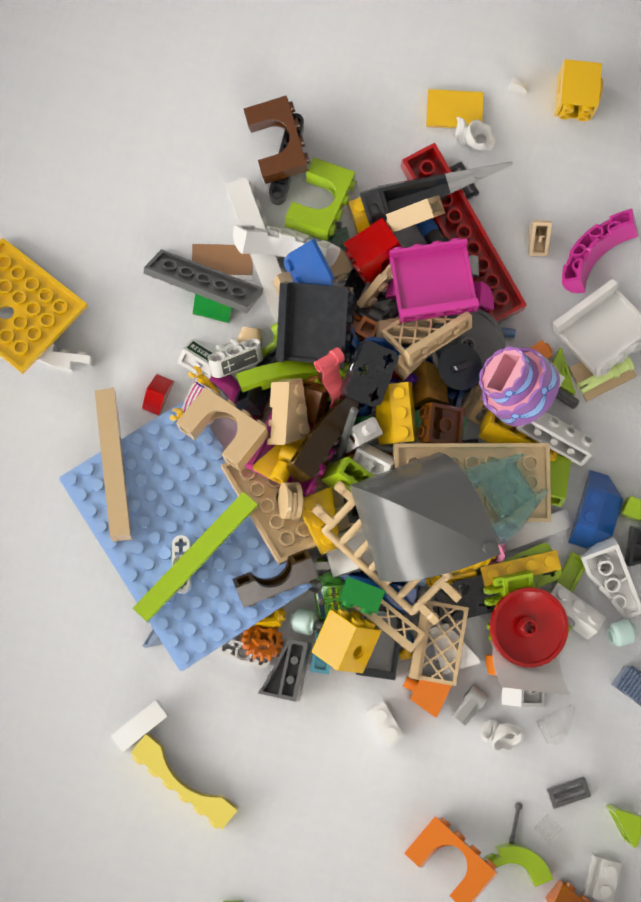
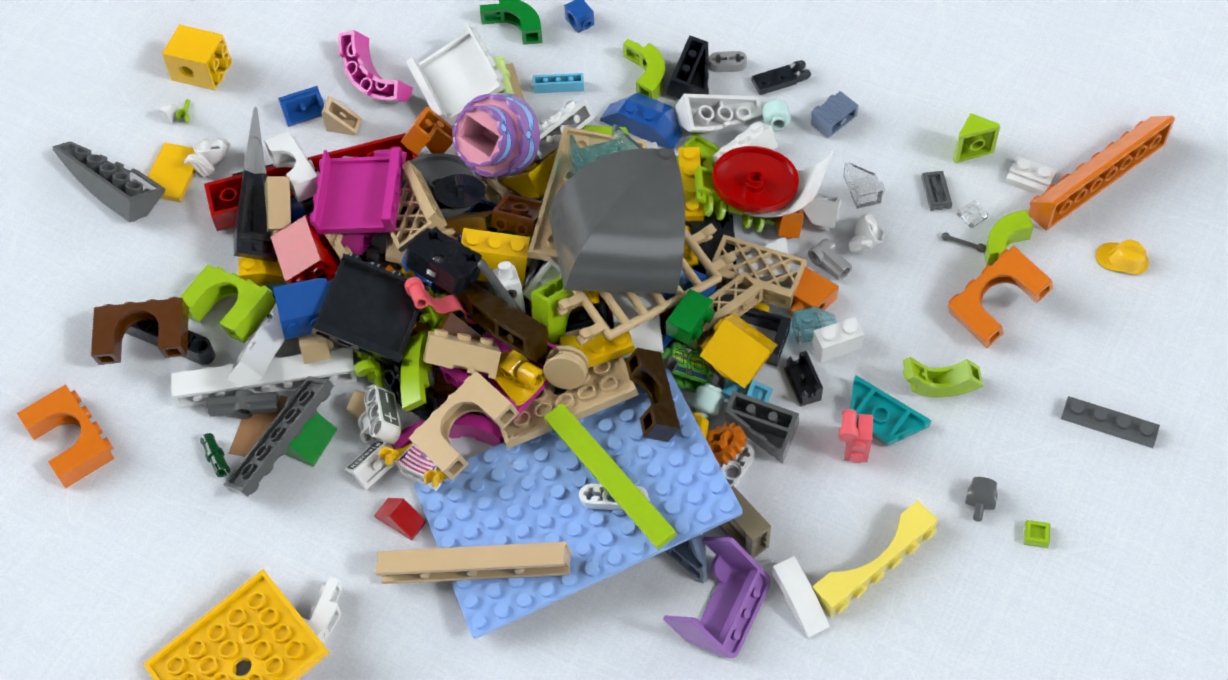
camera: 75 degrees left, 25 degrees down
(119, 669) = (733, 603): none -> medium lavender windscreen
(172, 136) = (63, 408): none -> orange arch
(183, 680) = (749, 529): none -> dark tan window
(185, 234) = (215, 455): none -> dark green pin
(238, 260) = (243, 404): none -> dark grey piece
(257, 863) = (981, 495): none -> dark grey piece
(285, 753) = (856, 436): none -> coral hinge
(320, 769) = (891, 418): none -> teal wing
(341, 699) = (803, 379): none -> black hinge
(361, 819) = (944, 381): none -> lime arch
(398, 702) = (808, 320): none -> clear light blue slope
(429, 64) = (120, 189): none -> dark grey wedge
(477, 201) = (287, 153): none -> white arch
(522, 97) = (183, 112): none -> lime hand
(526, 322) = (428, 131): none -> orange brick
(546, 199) = (302, 106): none -> blue hinge
(622, 423) = (558, 83): none -> medium azure piece

